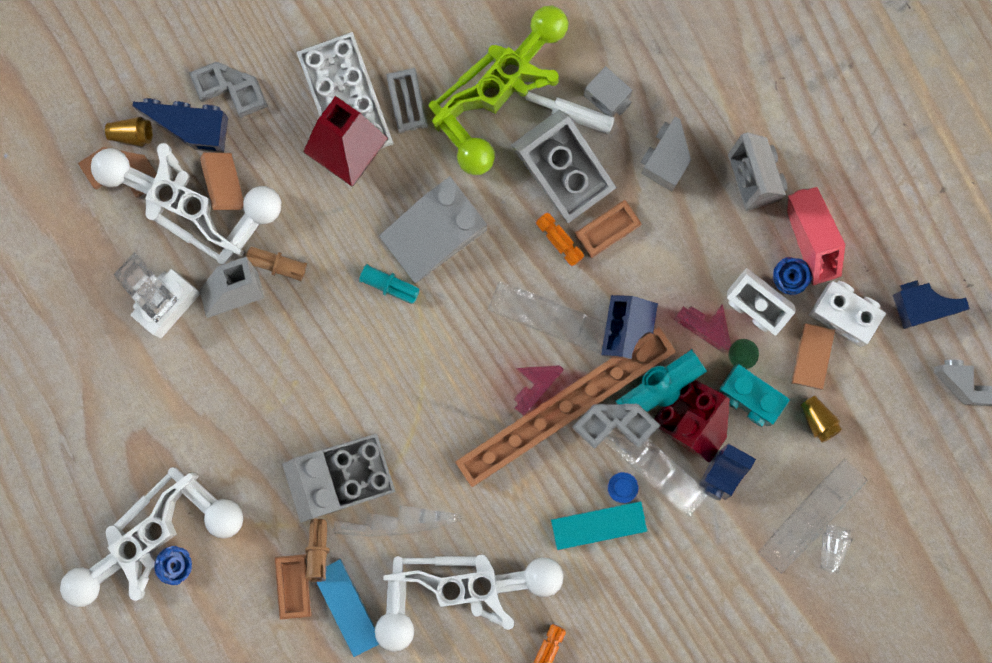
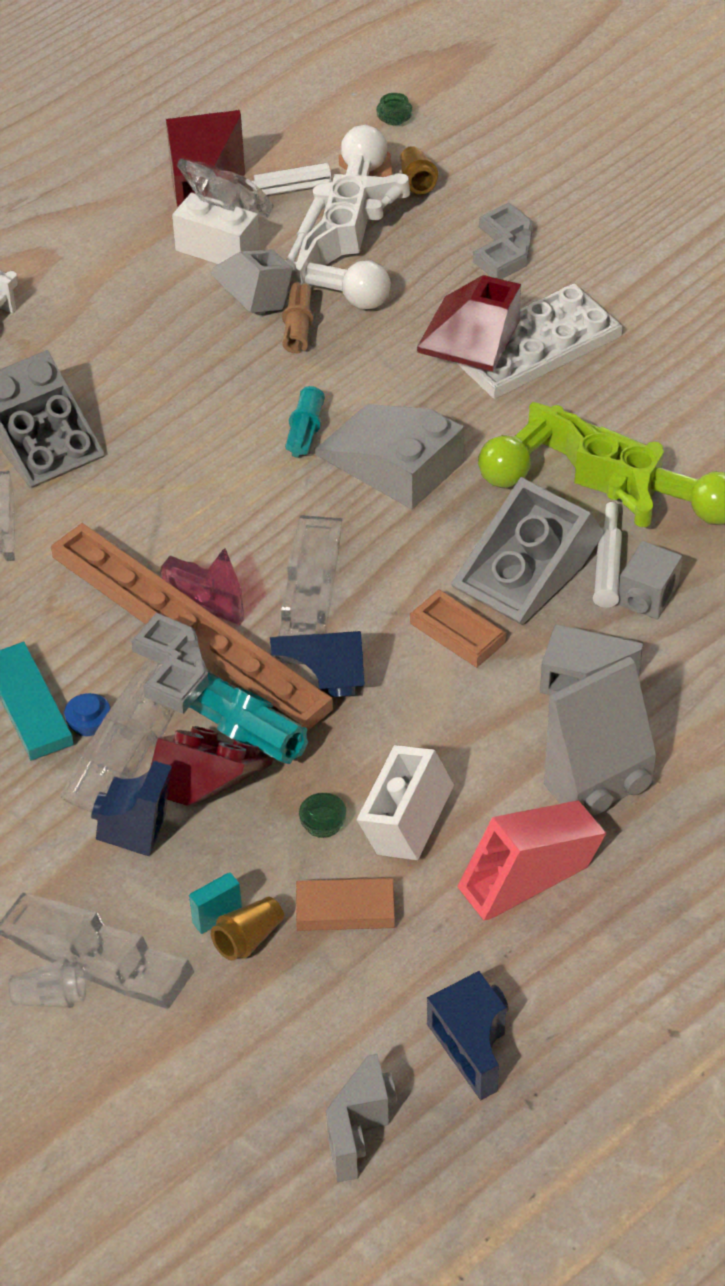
camera: 75 degrees right, 35 degrees down
(45, 129) = (394, 109): none -> clear green plate
(79, 296) = (208, 139): none -> dark red slope
(109, 239) = (293, 179): none -> white axle
(197, 127) = (443, 211): dark blue slope -> none
(222, 181) = (384, 244): nougat tile -> none
(412, 125) = (569, 398): light grey tile -> none
(560, 239) = (423, 577): orange axle -> none
(713, 332) = (350, 759): clear pink slope -> none
(753, 396) = (259, 827): teal brick -> none
(800, 435) = (214, 900): none -> teal tile
(801, 274) = (451, 837): blue plate -> none
(847, 313) = (424, 926): white brick -> none

